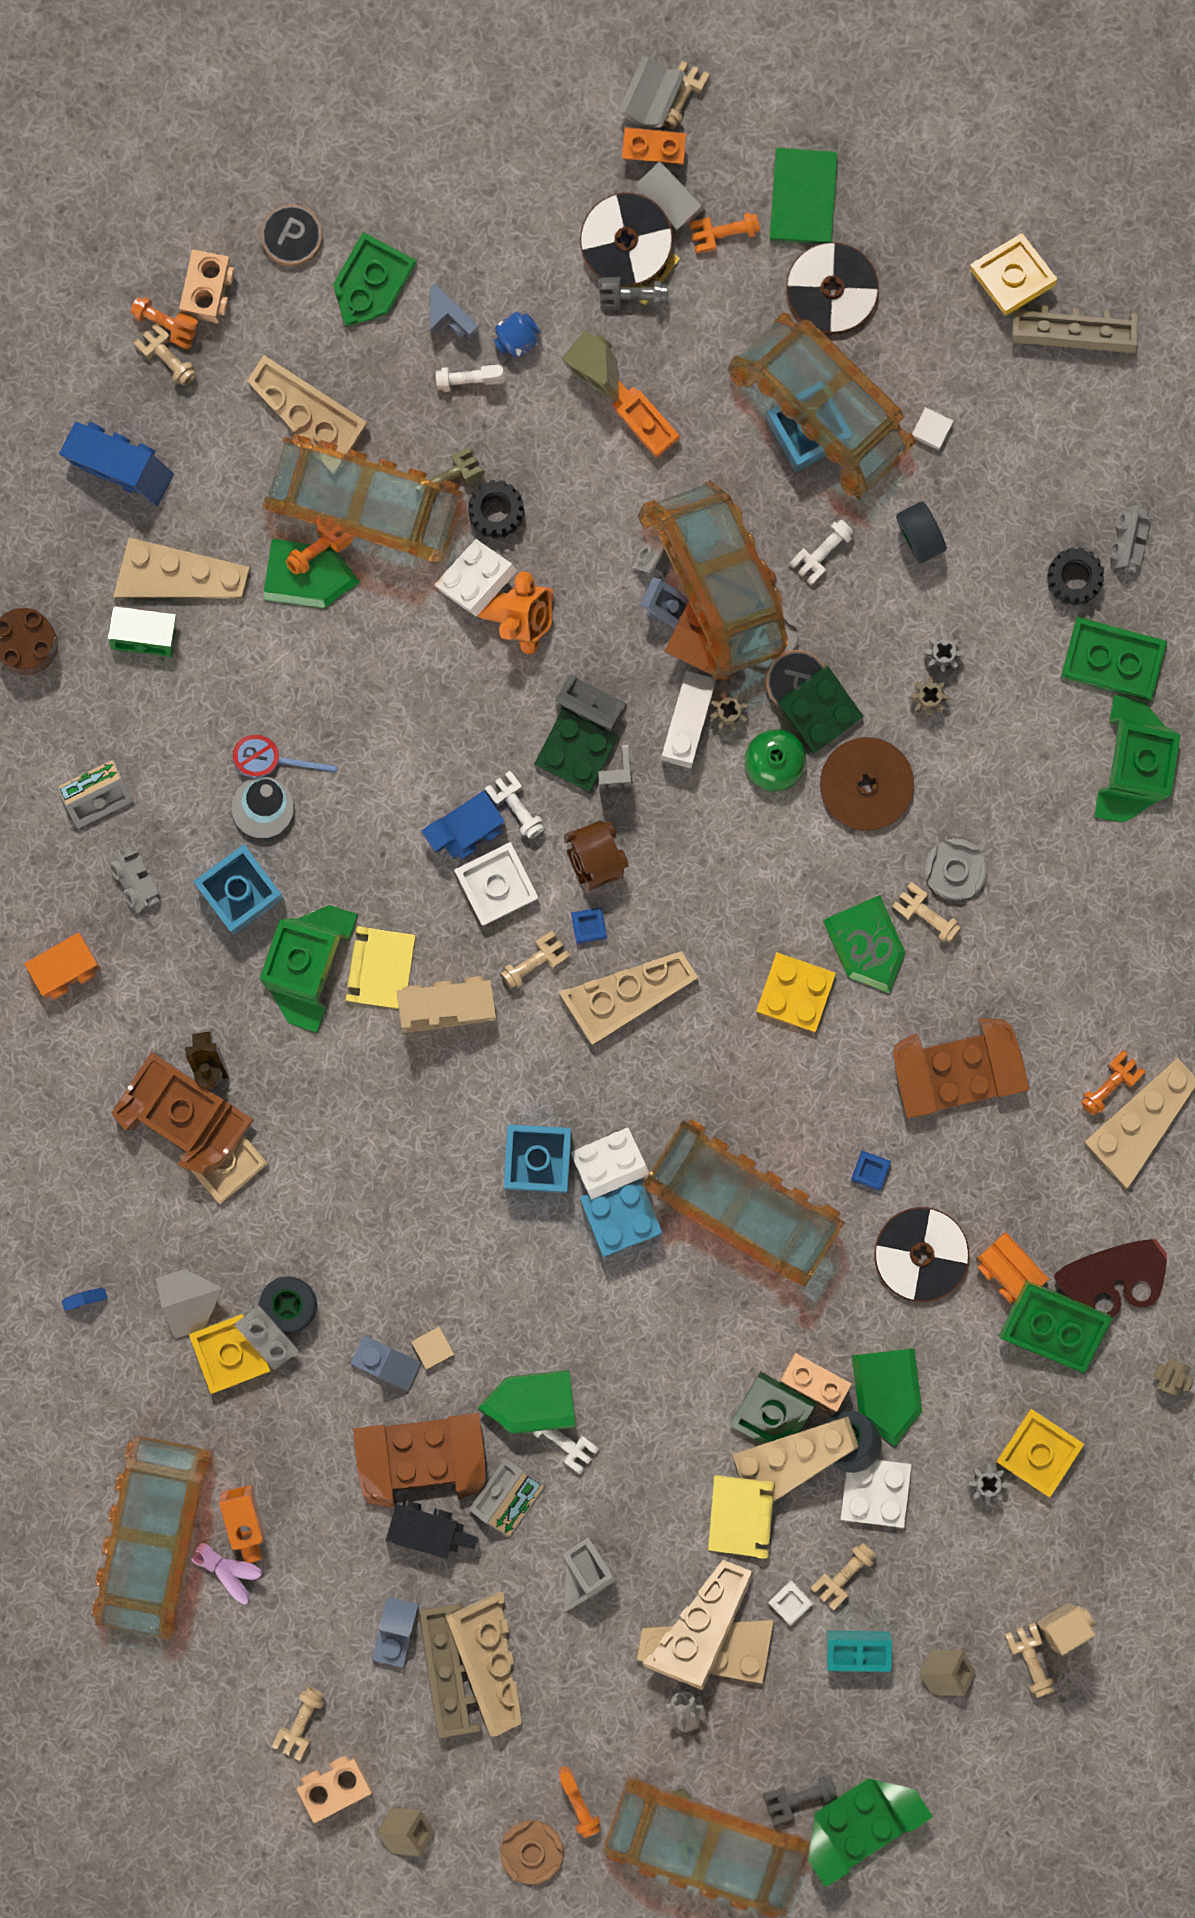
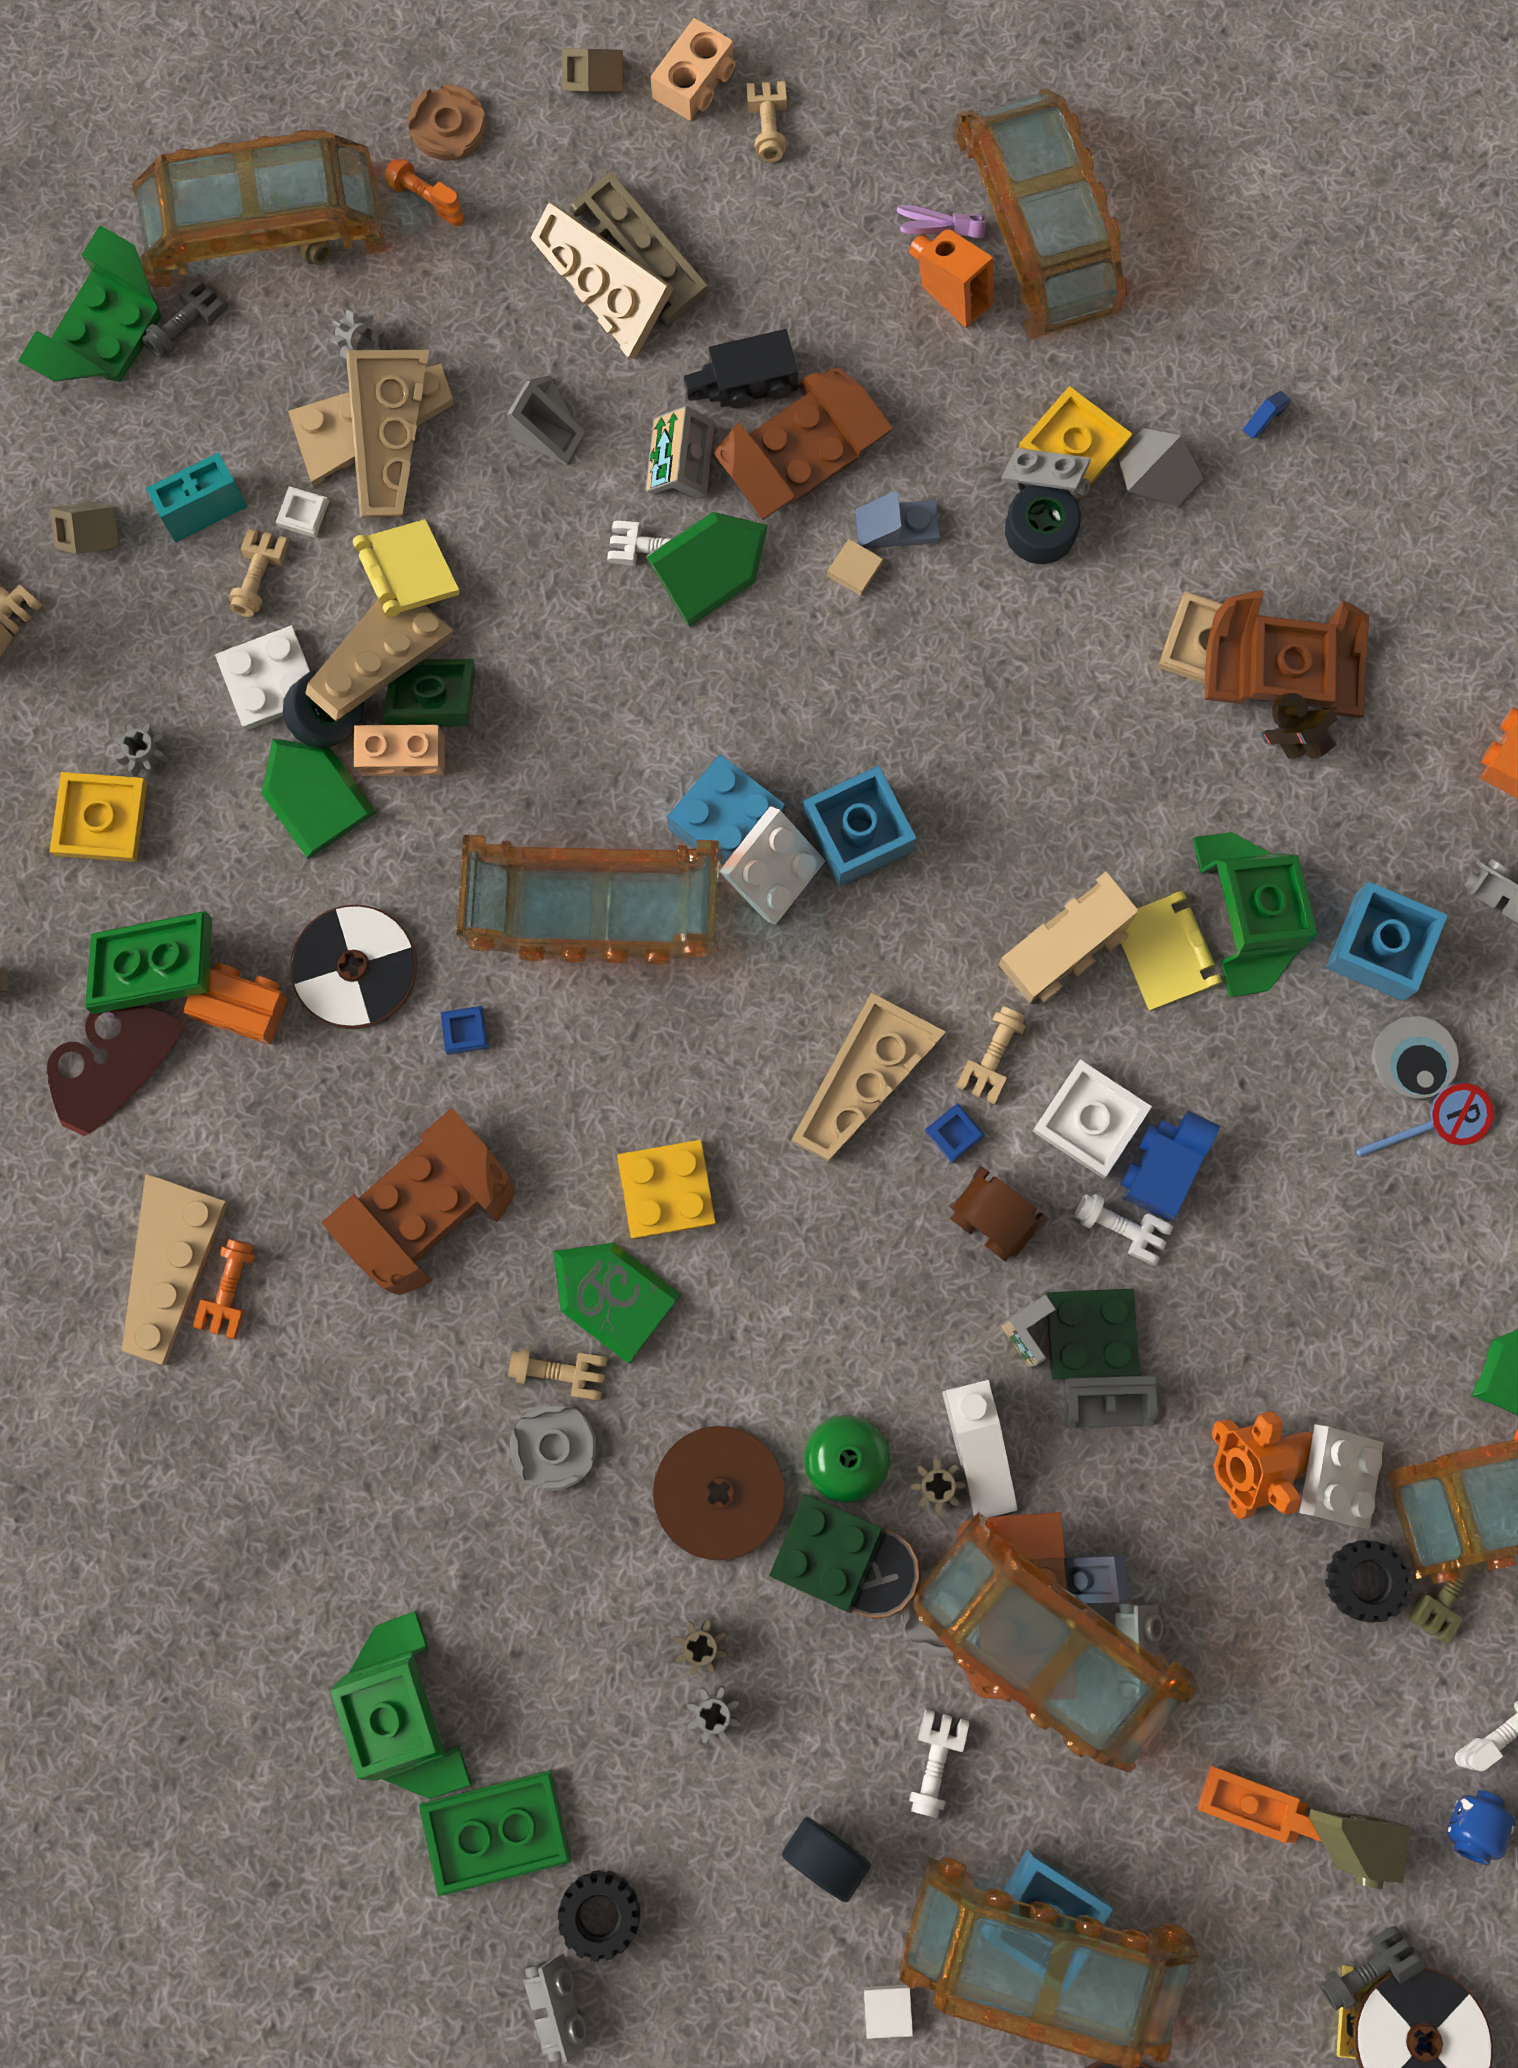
camera: 150 degrees right, 5 degrees down
(395, 1632) = (721, 259): sand blue slope -> none

